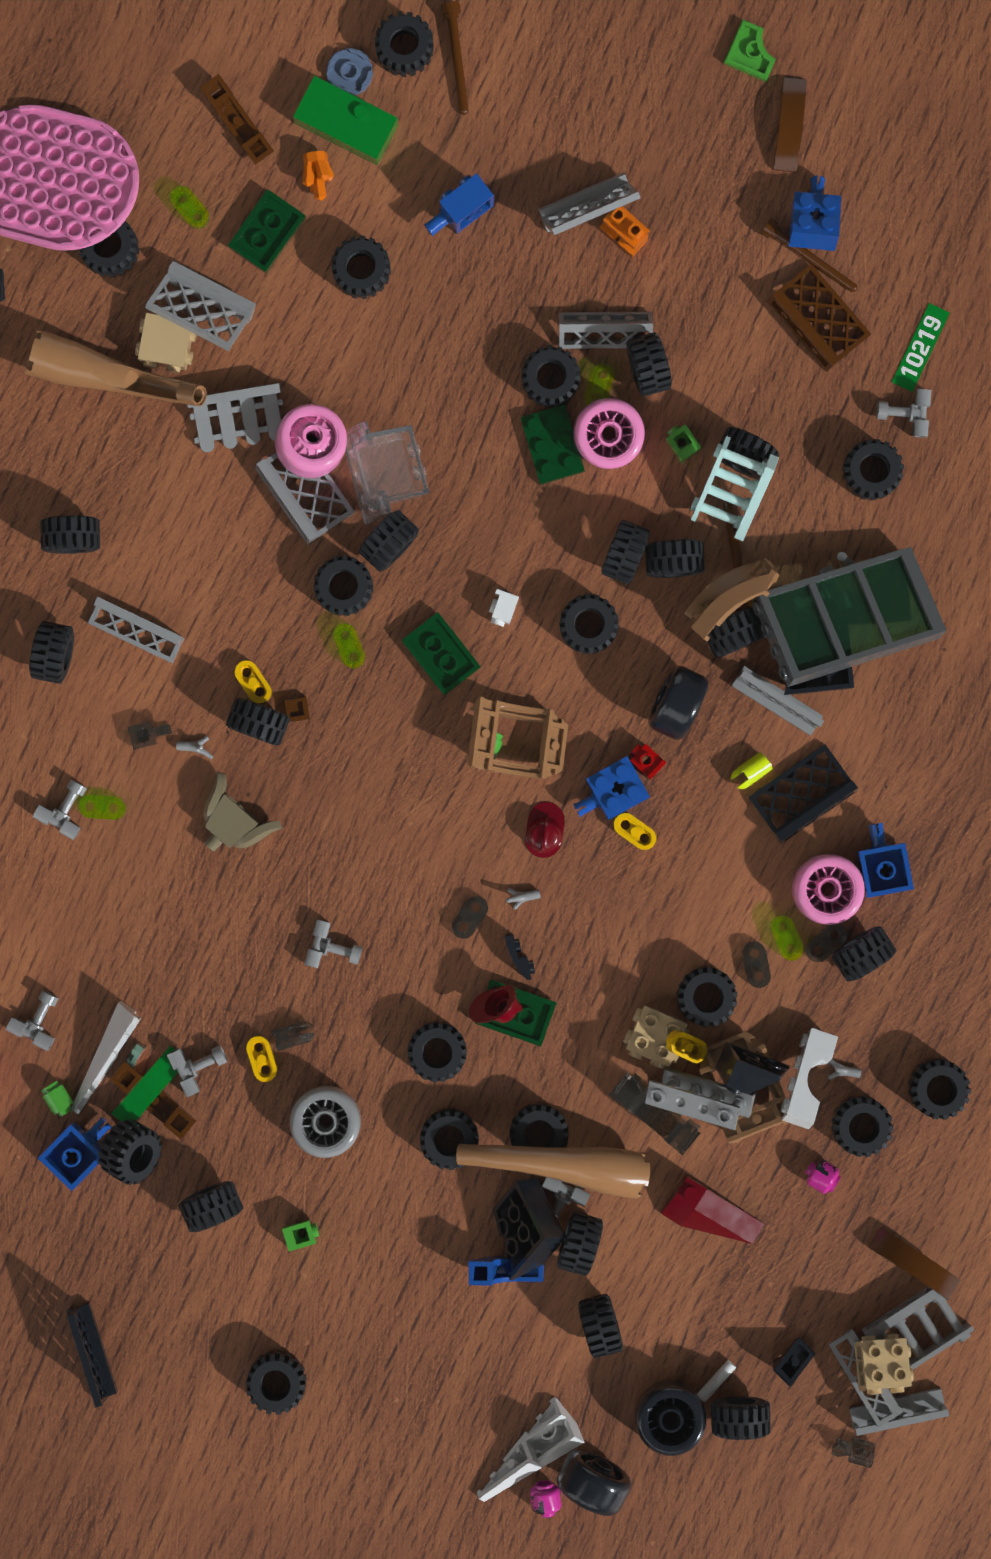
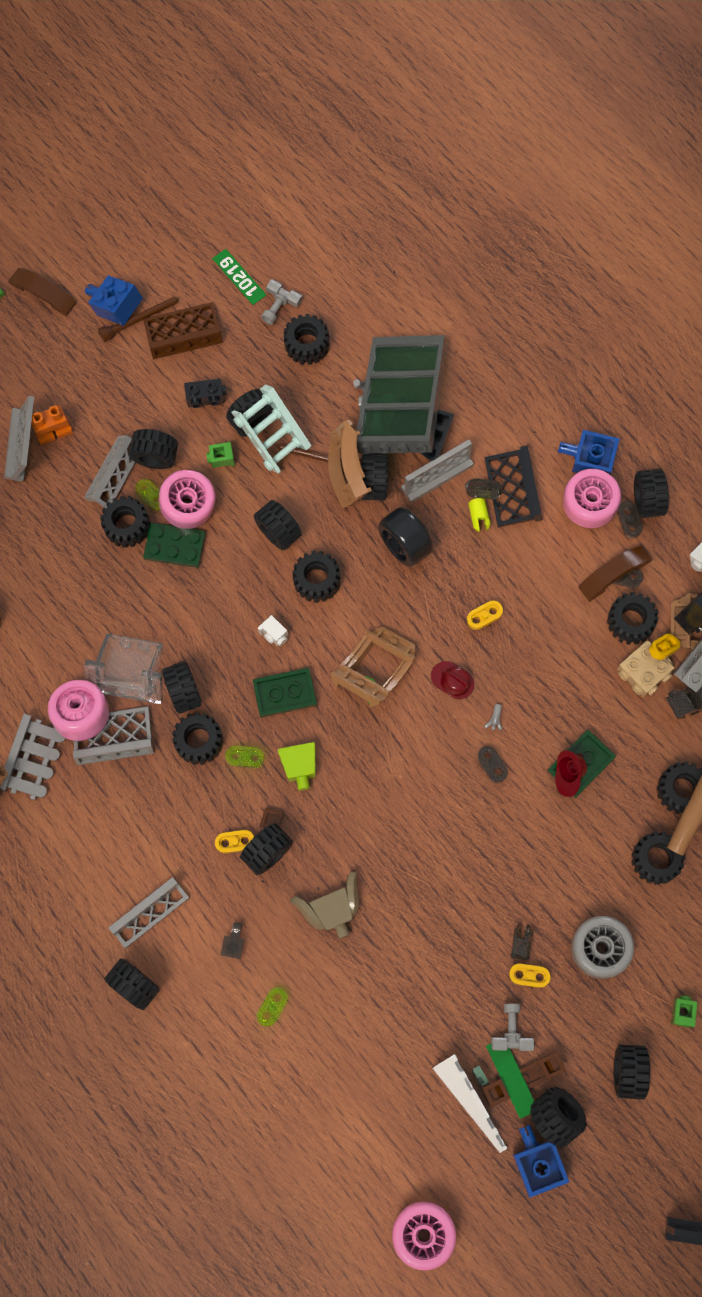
camera: 60 degrees left, 15 degrees down
(32, 1028) = (422, 1151): light grey bar -> none
(57, 1099) = (487, 1159): bright green brick -> none
(59, 817) = (264, 1044): light grey bar -> none
(70, 534) = (49, 924): black tyre -> none
(195, 746) = (262, 909): light grey bar -> none
(323, 945) = (463, 885): light grey bar -> none
(369, 709) = (299, 763): none -> lime torso
(430, 1071) = (592, 820): black tyre -> none
(522, 963) = (547, 740): black slope -> none
(604, 798) = (444, 623): blue brick -> none
(653, 767) = (435, 589): red brick -> none
(674, 558) = (300, 493): black tyre -> none
(749, 385) = (205, 393): none -> black brick
(754, 952) = (613, 571): none -> reddish brown slope
(783, 763) = (483, 488): none -> clear smoke plate
(787, 937) = (613, 544): clear neon green plate -> none

